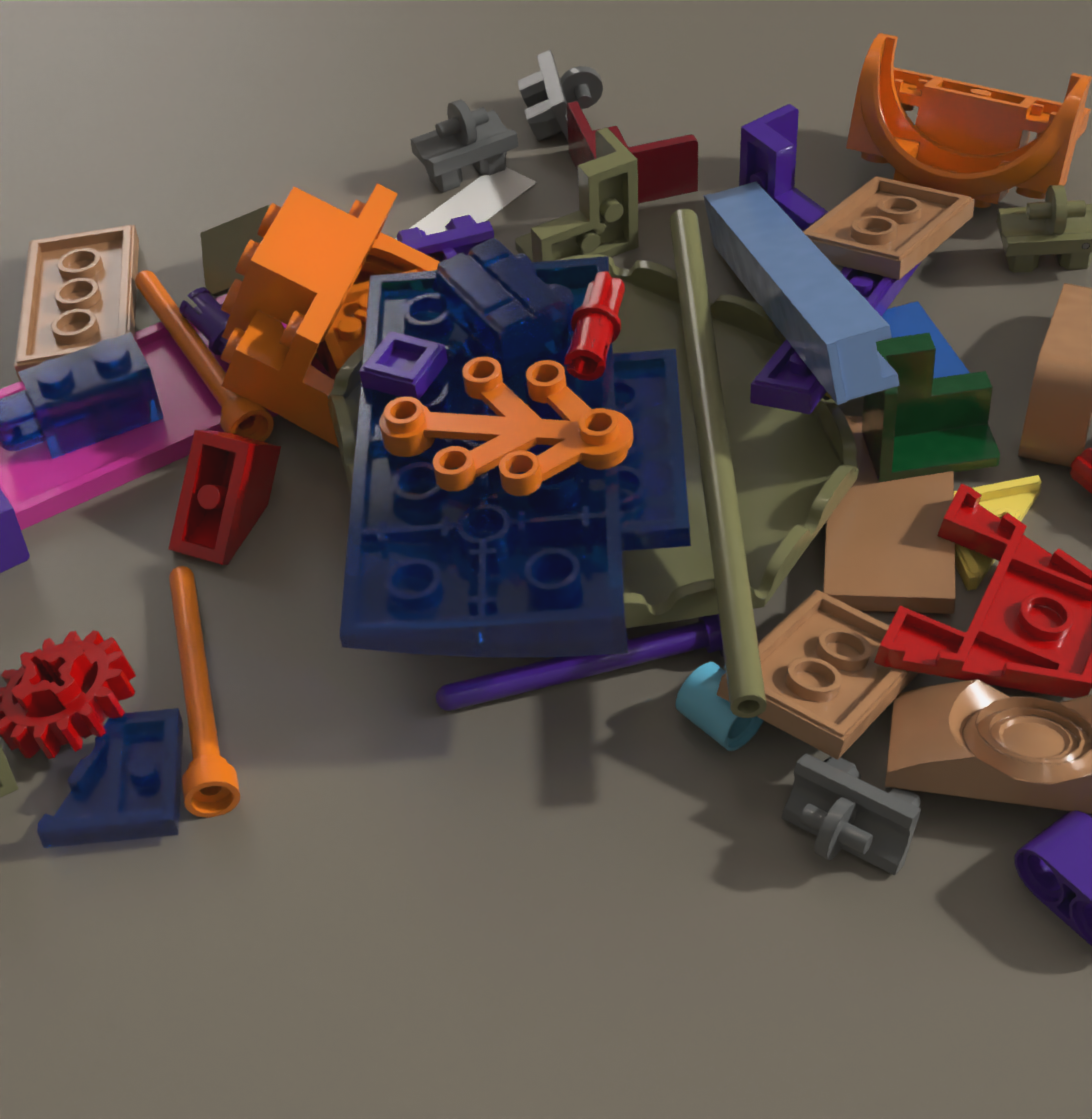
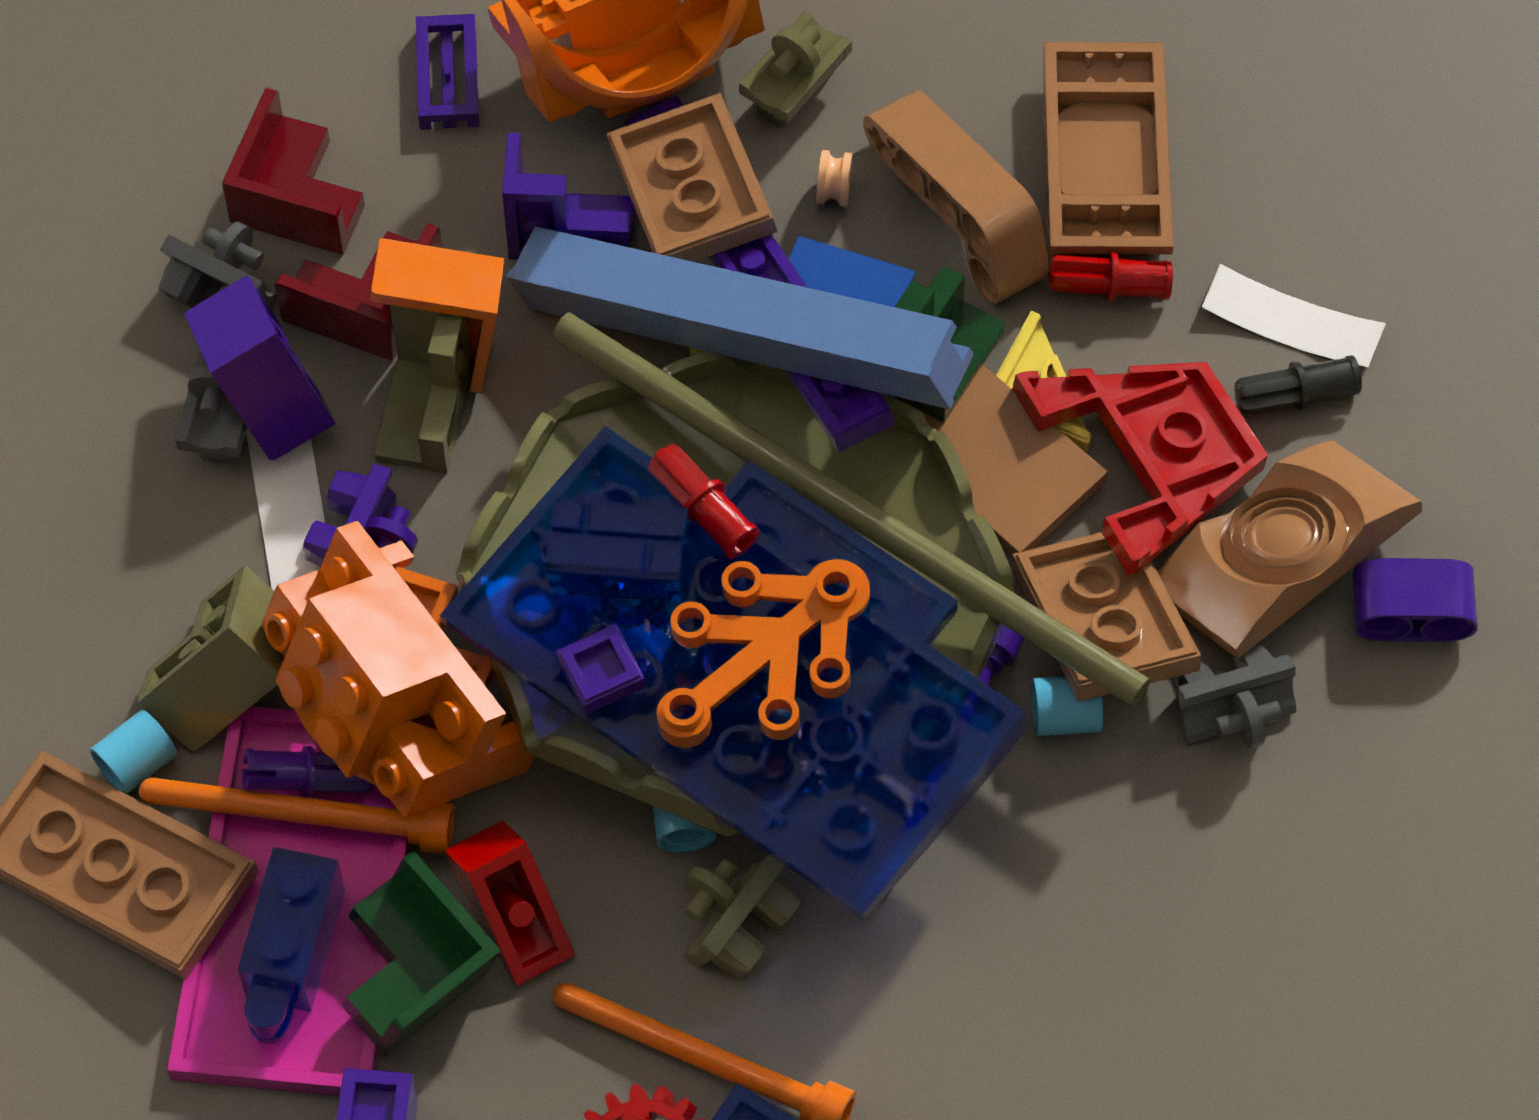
camera: 55 degrees left, 15 degrees up
(126, 489) = (430, 950): none -> dark green panel
(172, 260) = (133, 752): none -> medium azure beam
(314, 617) = (757, 892): none -> olive hips
(495, 139) = (258, 368): none -> dark purple panel
(657, 163) = (446, 284): none -> orange panel
(661, 76) = (274, 184): none -> dark red panel
(839, 108) = (449, 111): none -> dark purple tile
(998, 306) = (834, 178): none -> light nougat bush

